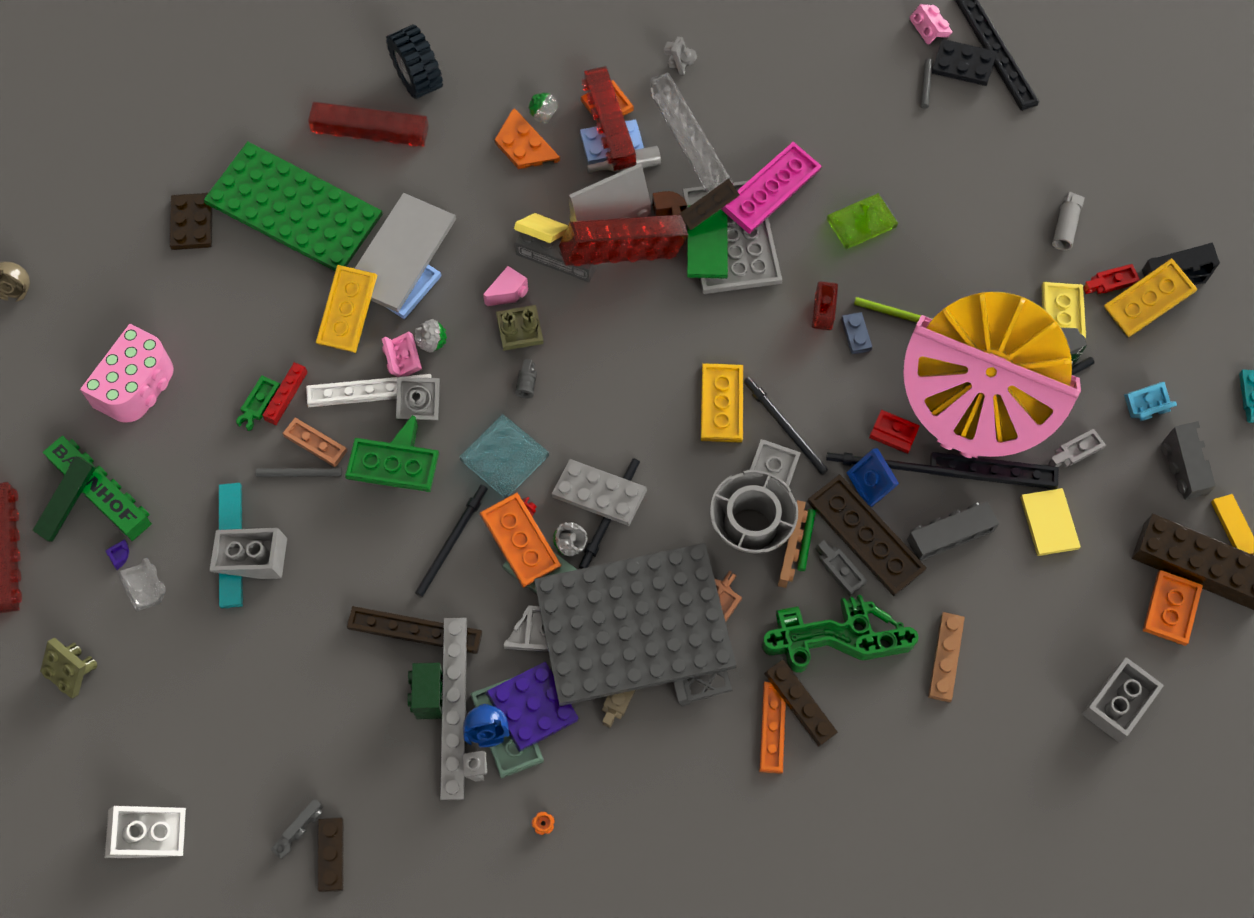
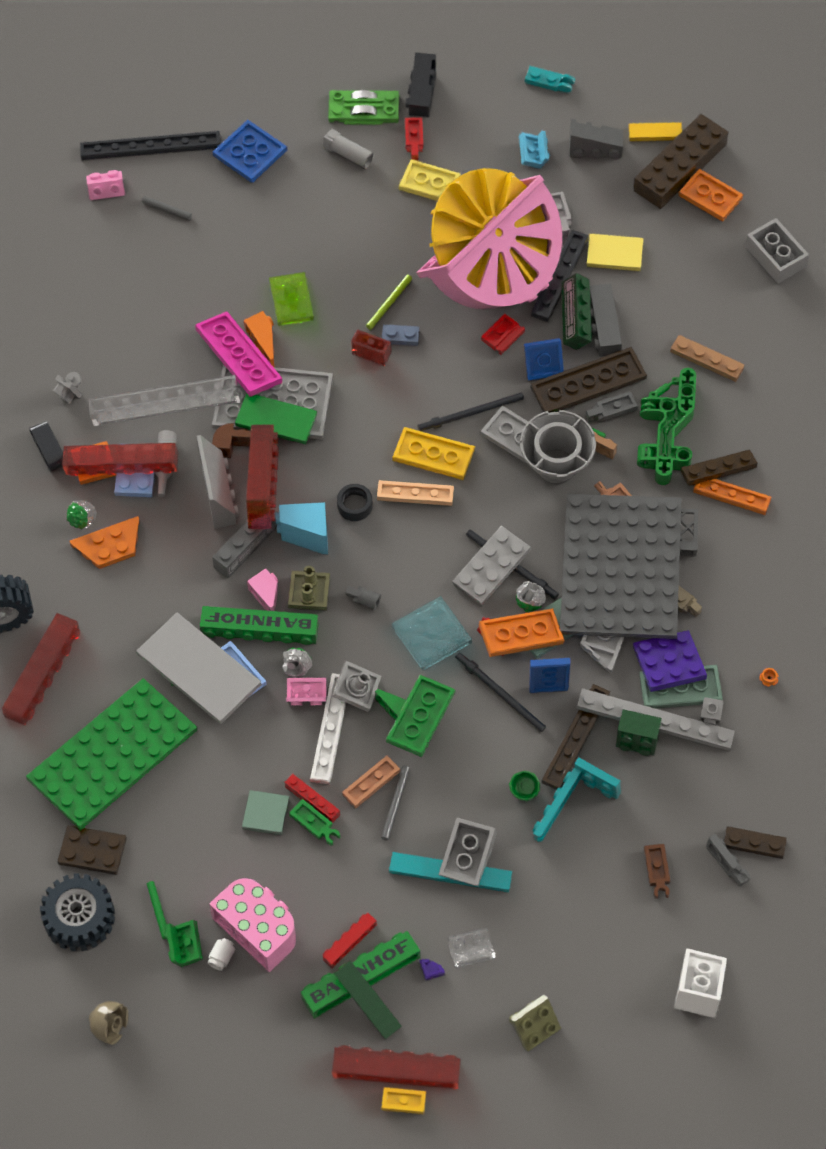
camera: 70 degrees left, 5 degrees down
(93, 356) = (221, 954): none -> white brick
(103, 321) = (184, 943): none -> green bracket
(117, 224) = (57, 914): none -> black wheel
(135, 468) = (349, 940): none -> red piece
(138, 293) = (157, 908): none -> green bar
(261, 356) = (265, 812): none -> sand green tile
(273, 753) = (657, 868): none -> reddish brown plate
(339, 589) = (524, 785): none -> green hair
(346, 308) = (245, 725): yellow tile -> none
(361, 652) = (592, 778): none -> teal bracket
(466, 293) = (259, 625): none -> green brick
(468, 578) = (549, 675): none -> blue tile
(485, 726) = (680, 694): blue cylinder -> none
(541, 227) = (219, 542): light yellow tile -> none
(588, 301) = (304, 525): none -> medium azure slope
(616, 57) = (47, 445): none -> black beam
(632, 355) = (354, 489): none -> black tyre
(665, 396) = (415, 493): none -> light nougat plate
(709, 204) = (248, 399): dark brown plate -> none
(803, 206) = (260, 332): none -> orange slope
(849, 459) = (518, 372): black bar -> none
(948, 497) = (576, 311): none -> dark green brick
(964, 62) = (158, 172): black plate -> none
(1025, 134) = (249, 151): none -> blue plate
(1131, 224) = (363, 107): none -> bright green piece
(1150, 298) = (443, 115): yellow tile -> none

